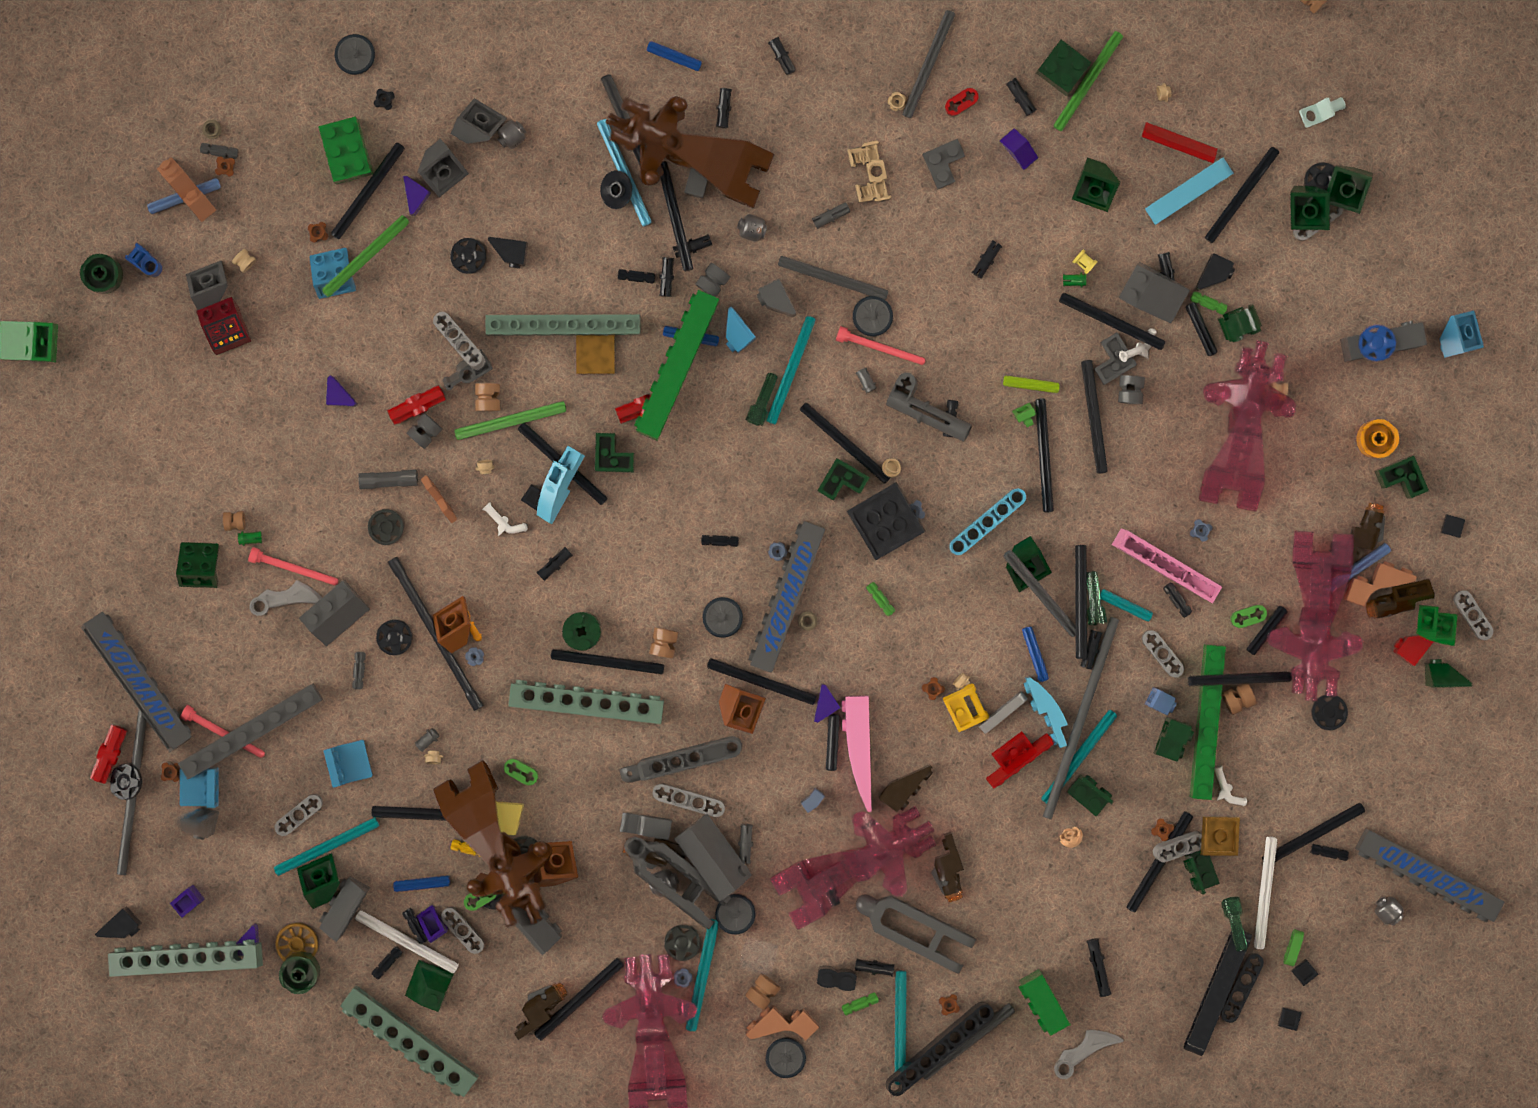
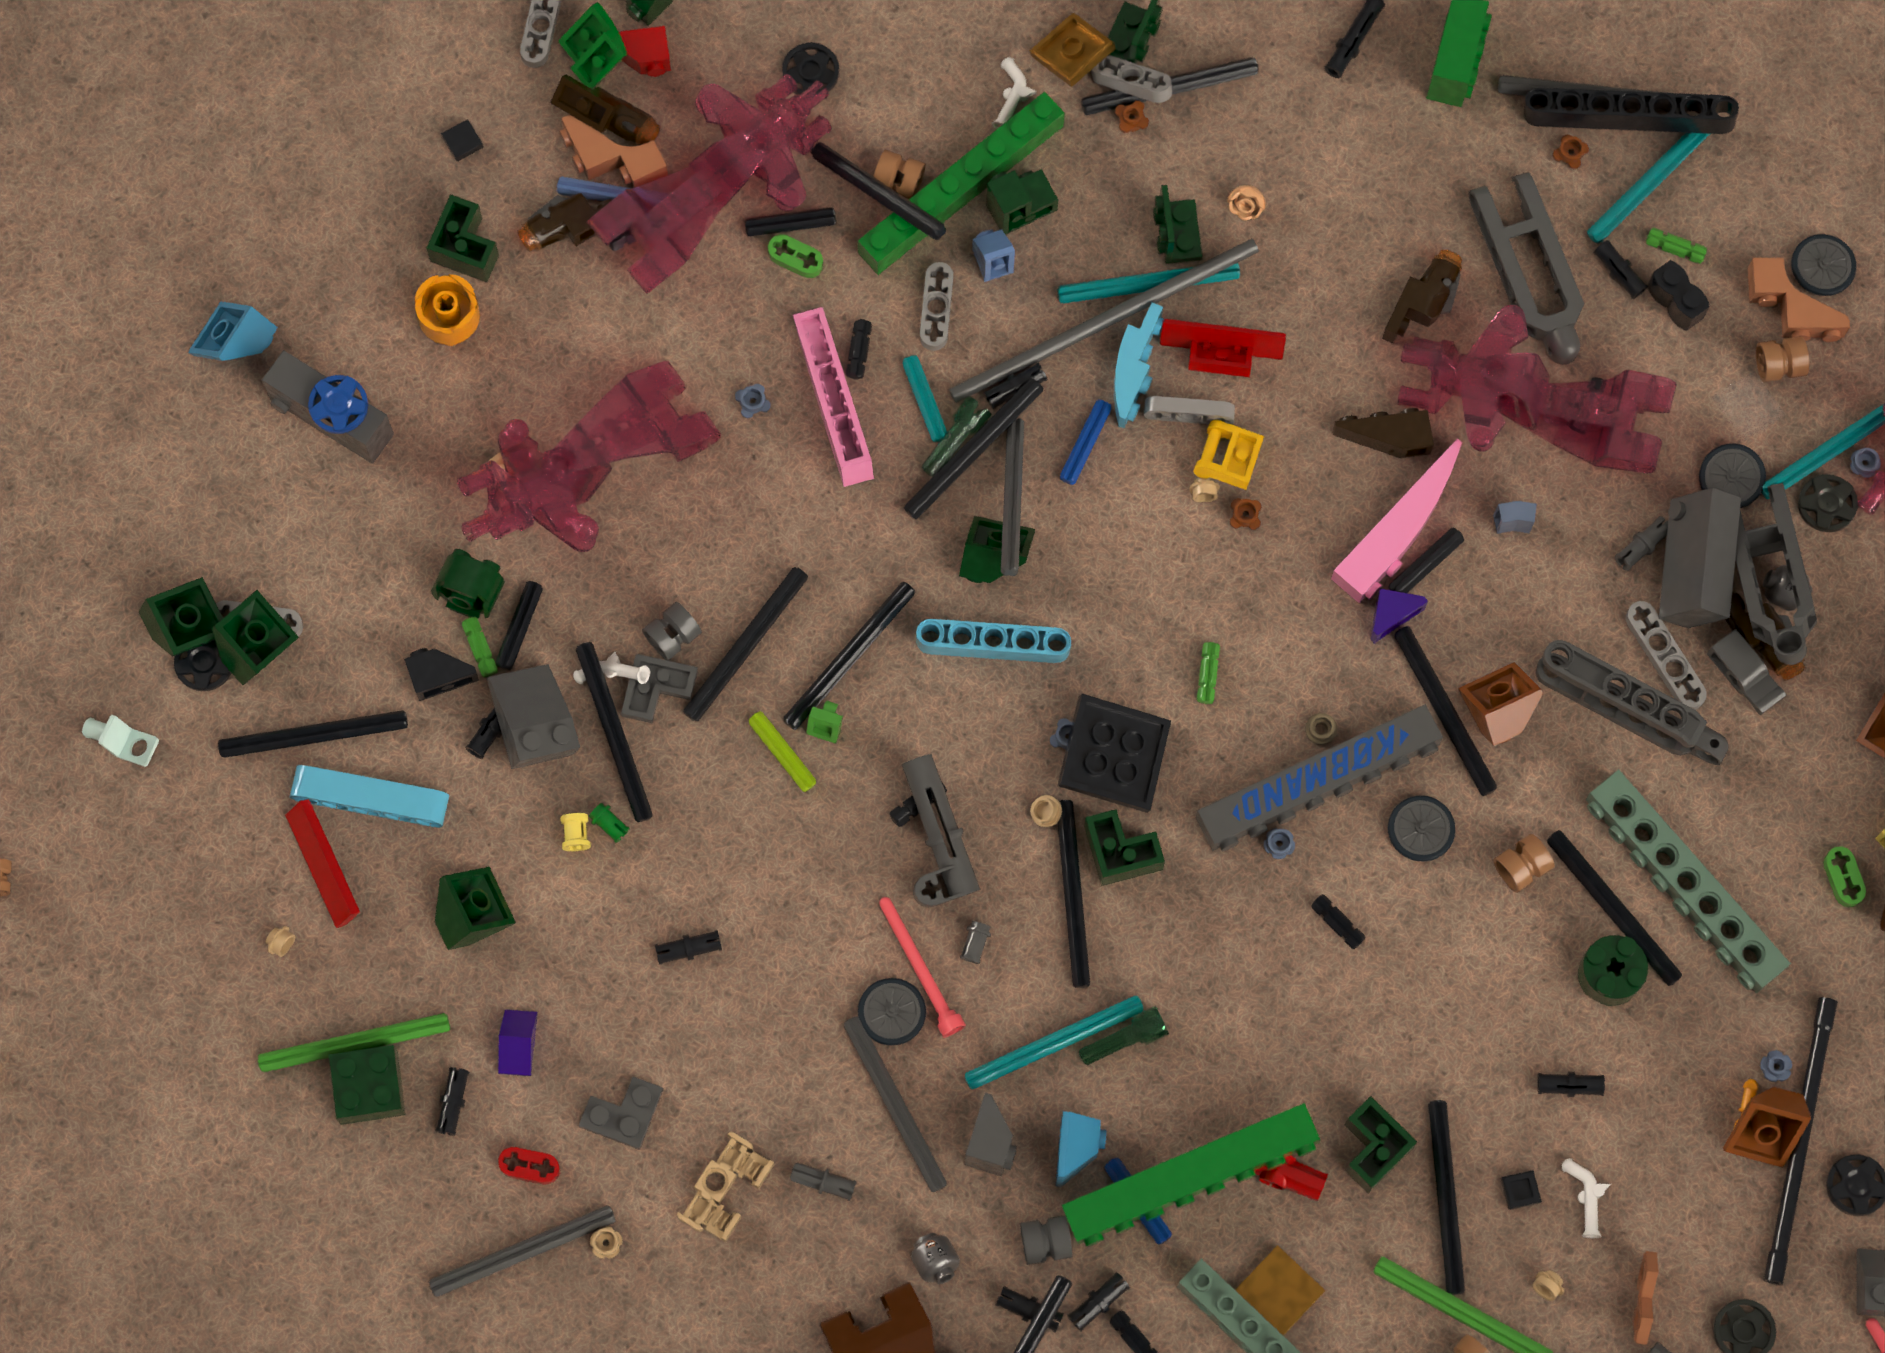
camera: 140 degrees left, 15 degrees down
(556, 483) = (1476, 1175): medium azure slope -> none

